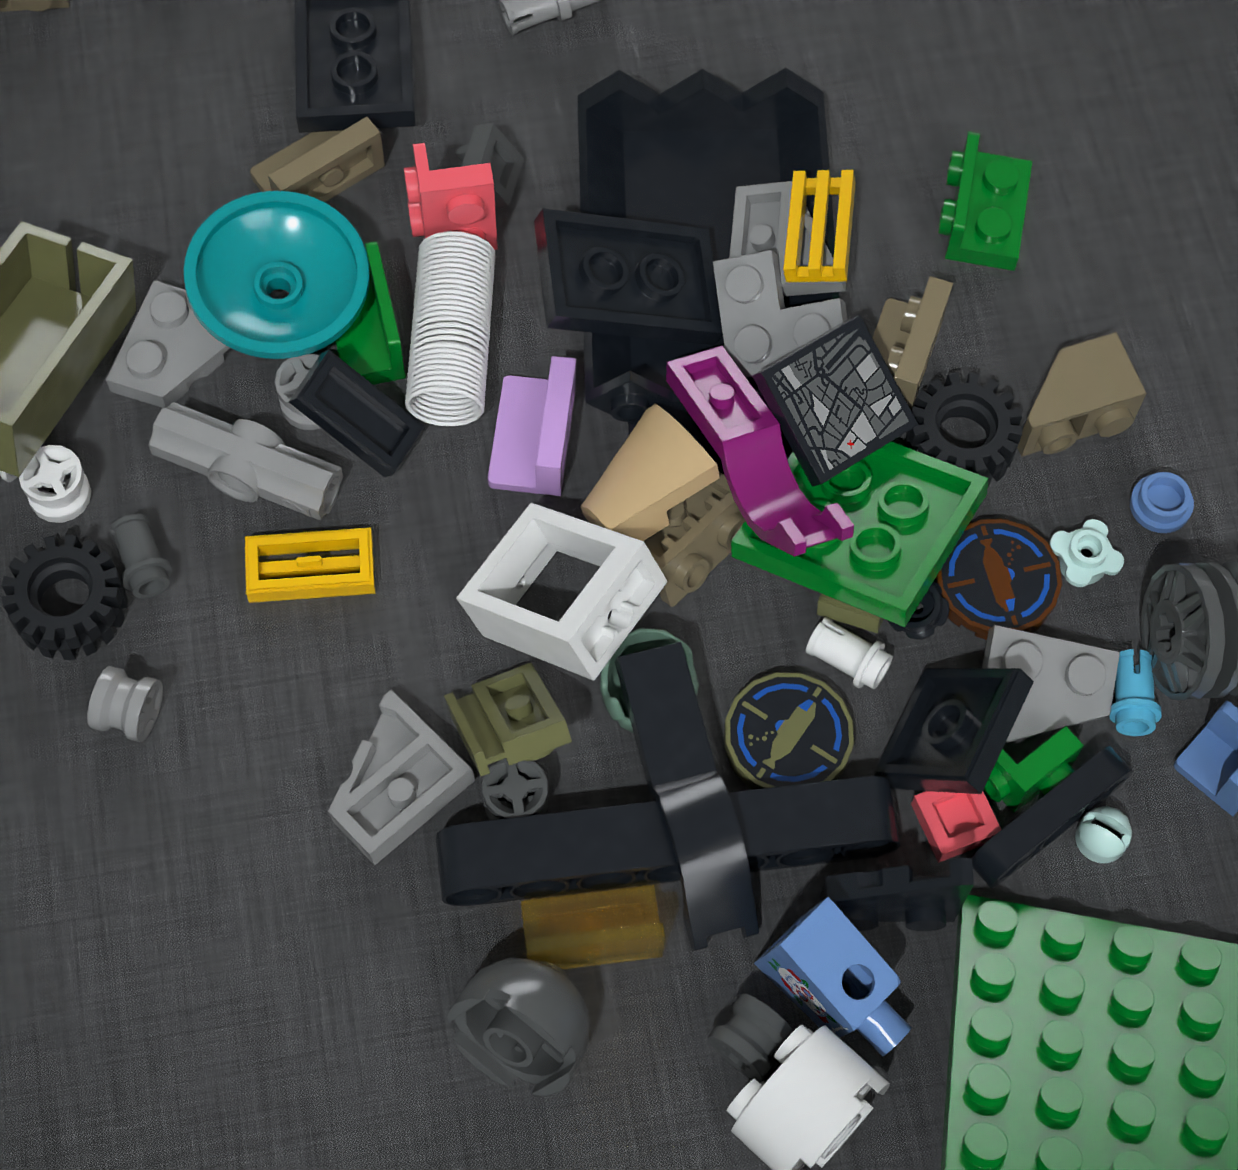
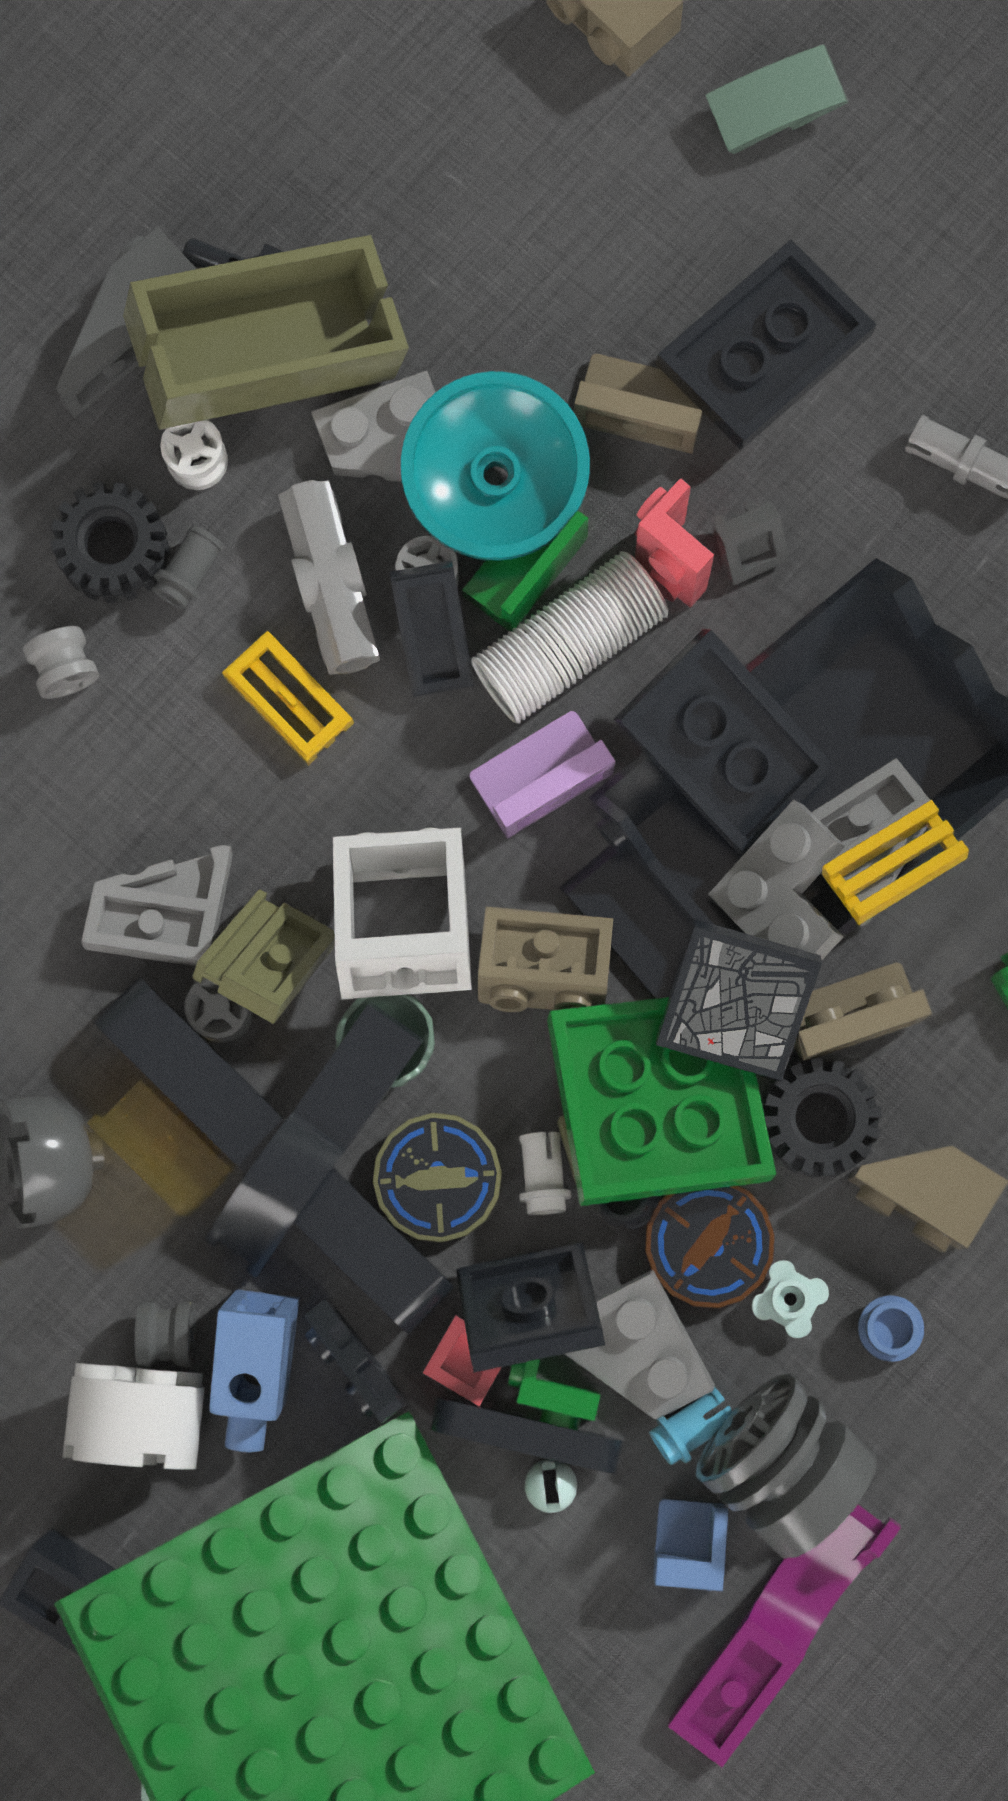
camera: 60 degrees right, 15 degrees up
(649, 476) = (549, 902): tan slope -> none
(752, 453) = (634, 971): magenta piece -> none

